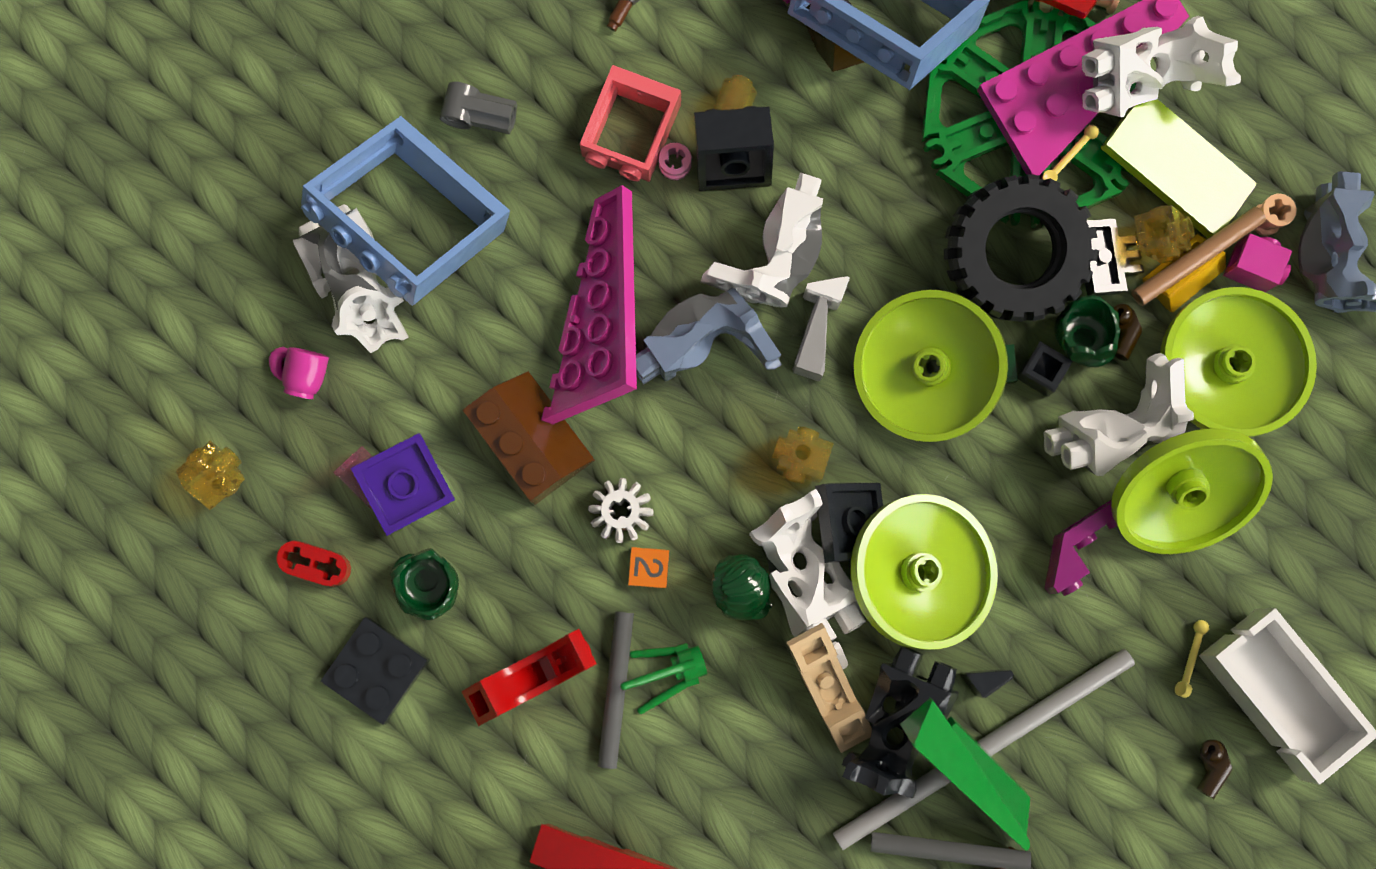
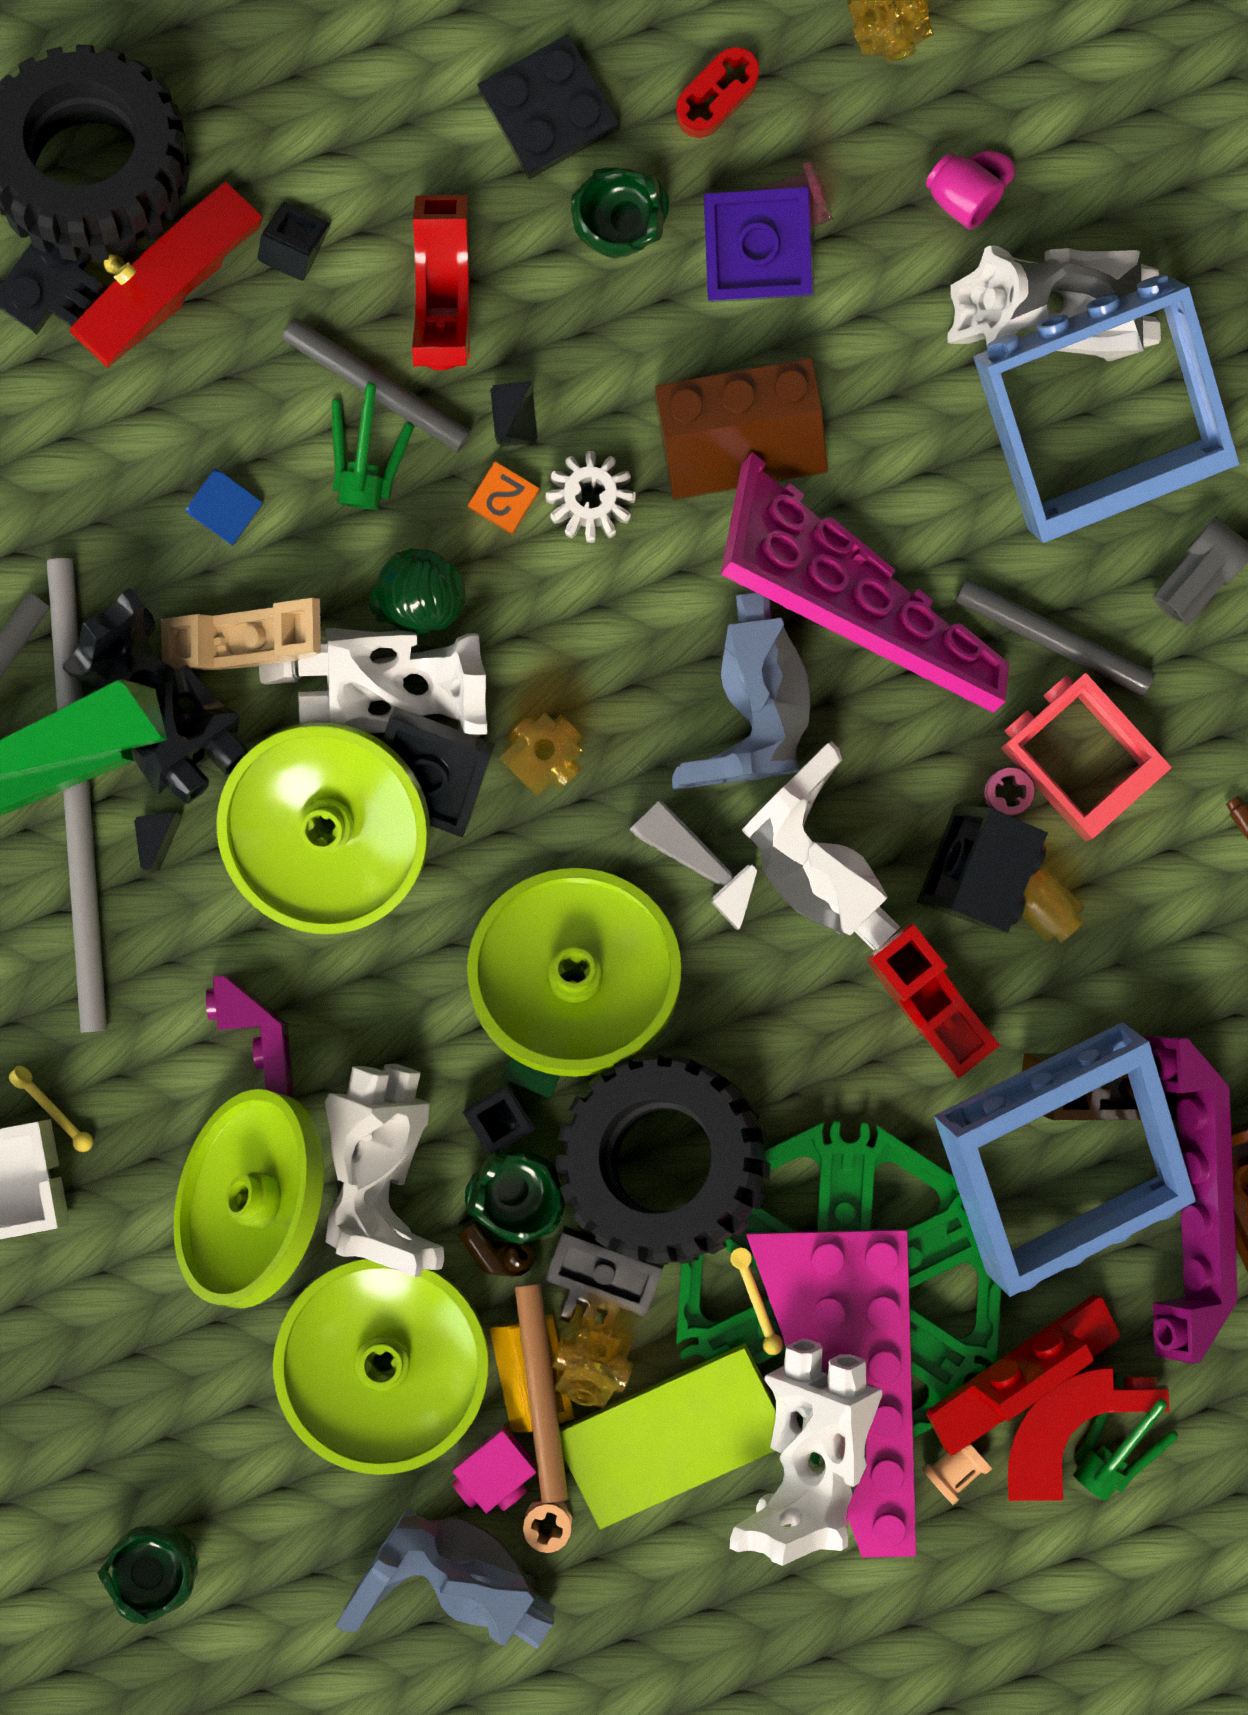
camera: 120 degrees right, 5 degrees up
(546, 796) = (292, 241): none -> black slope
(564, 180) = (1055, 637): none -> dark grey piece
(591, 588) = (513, 414): none -> black slope
(747, 748) = (223, 507): none -> blue slope
(832, 137) = (931, 1003): none -> red arch

